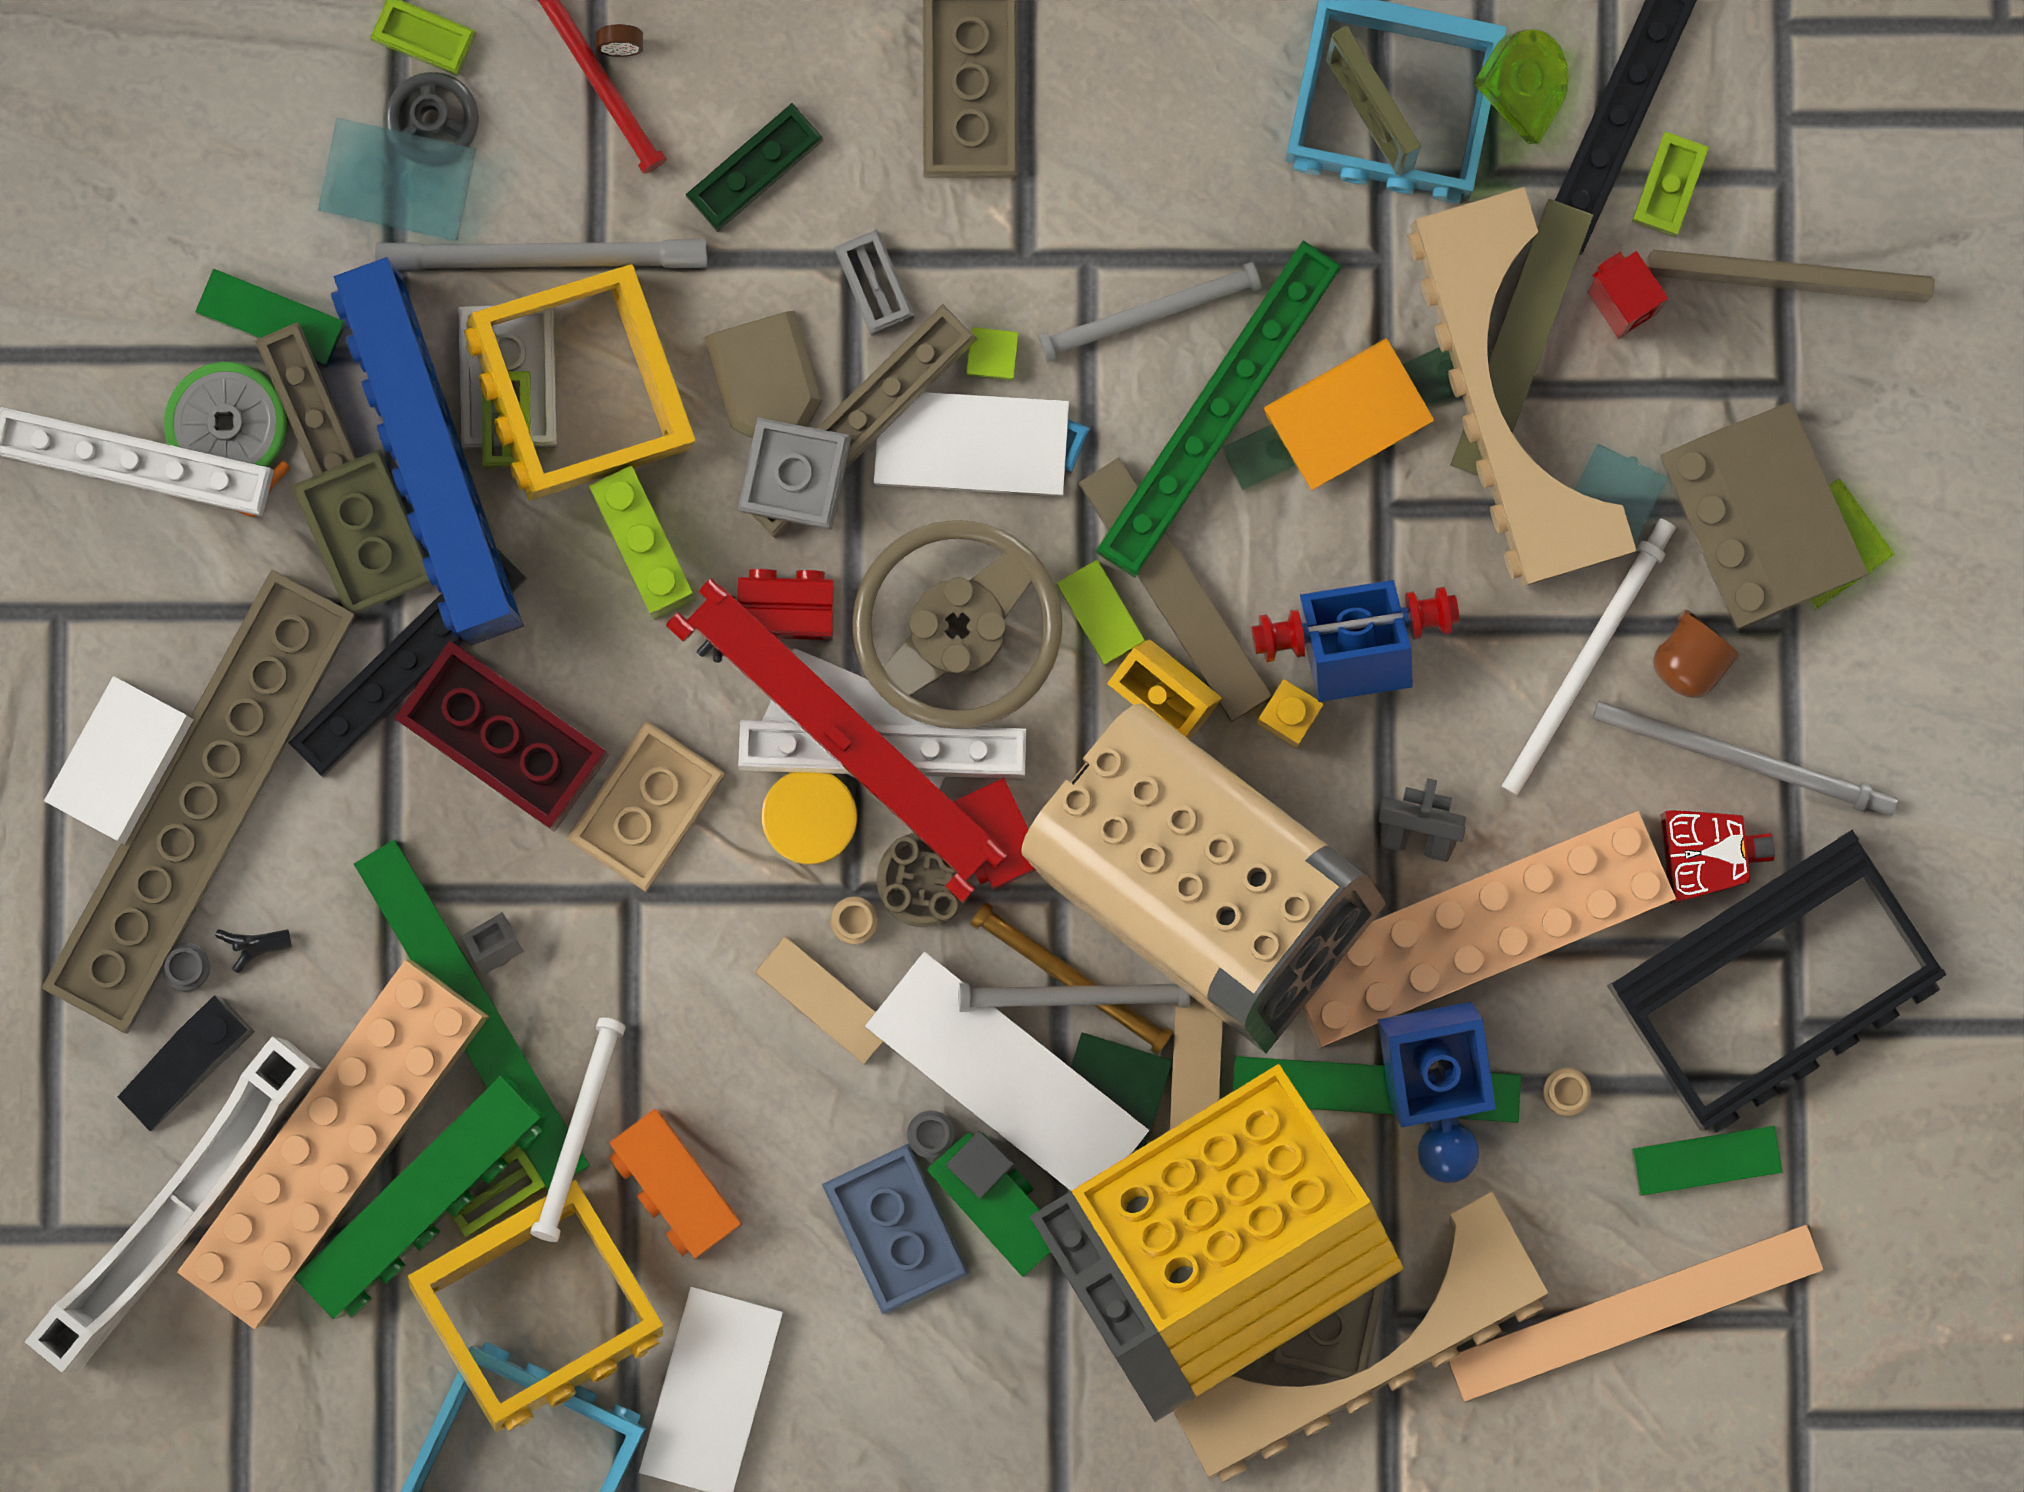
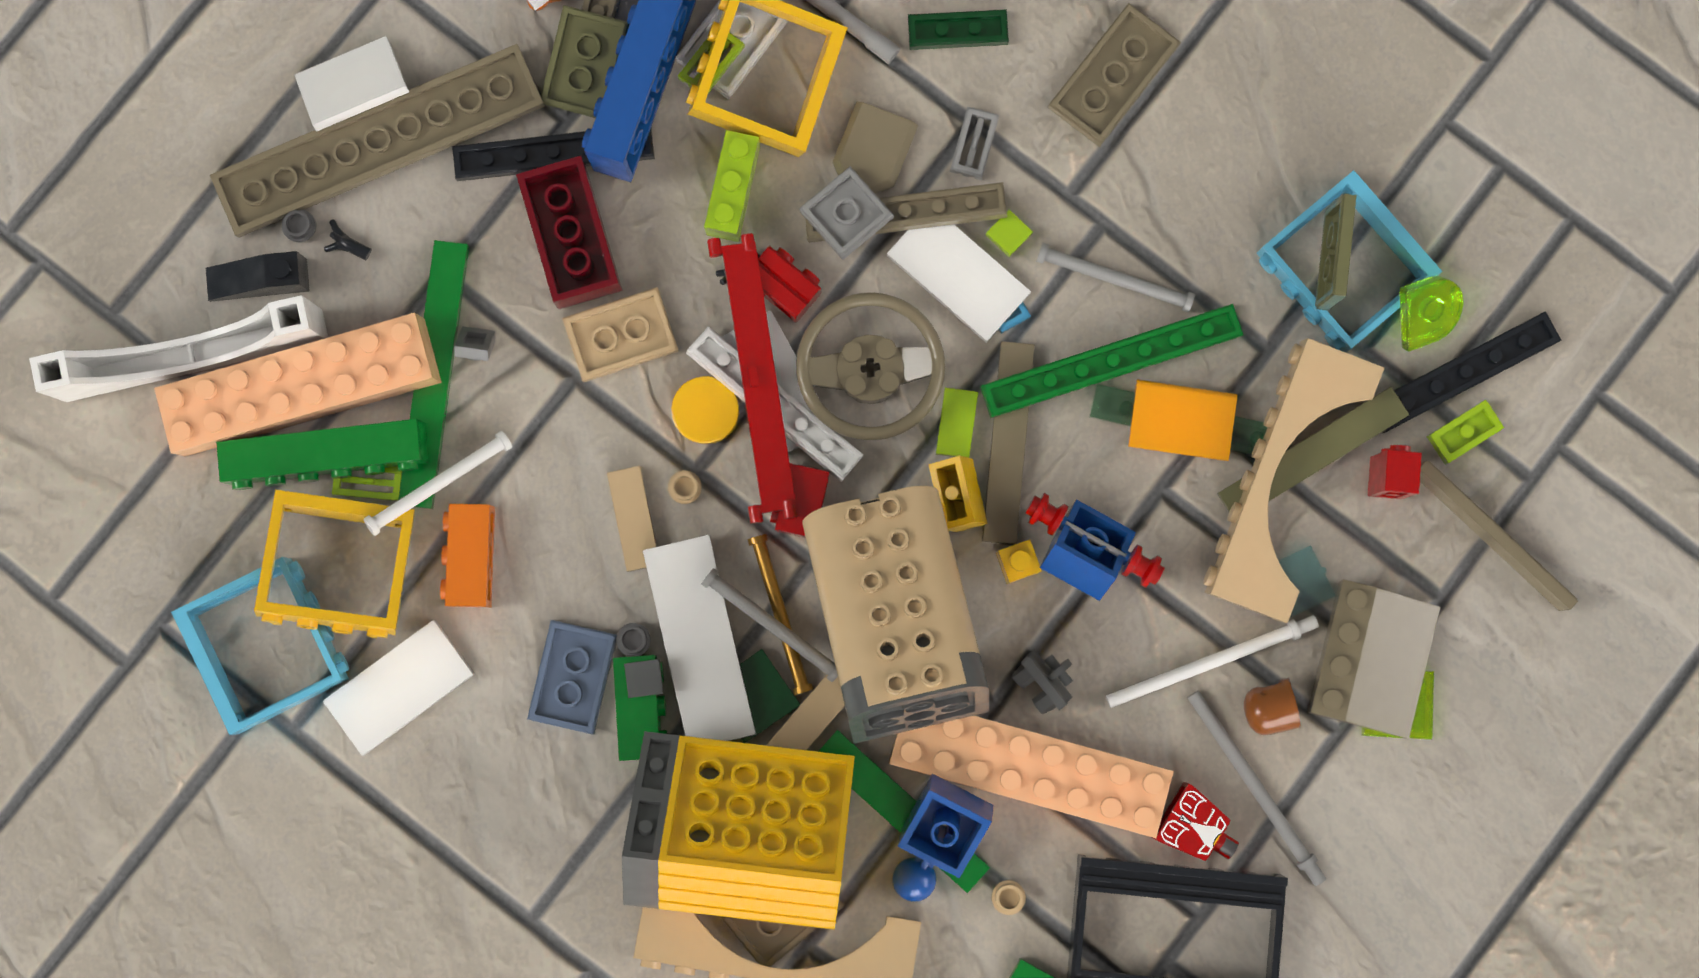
camera: 35 degrees right, 0 degrees up
(914, 882) = (732, 492): dark tan tile -> none

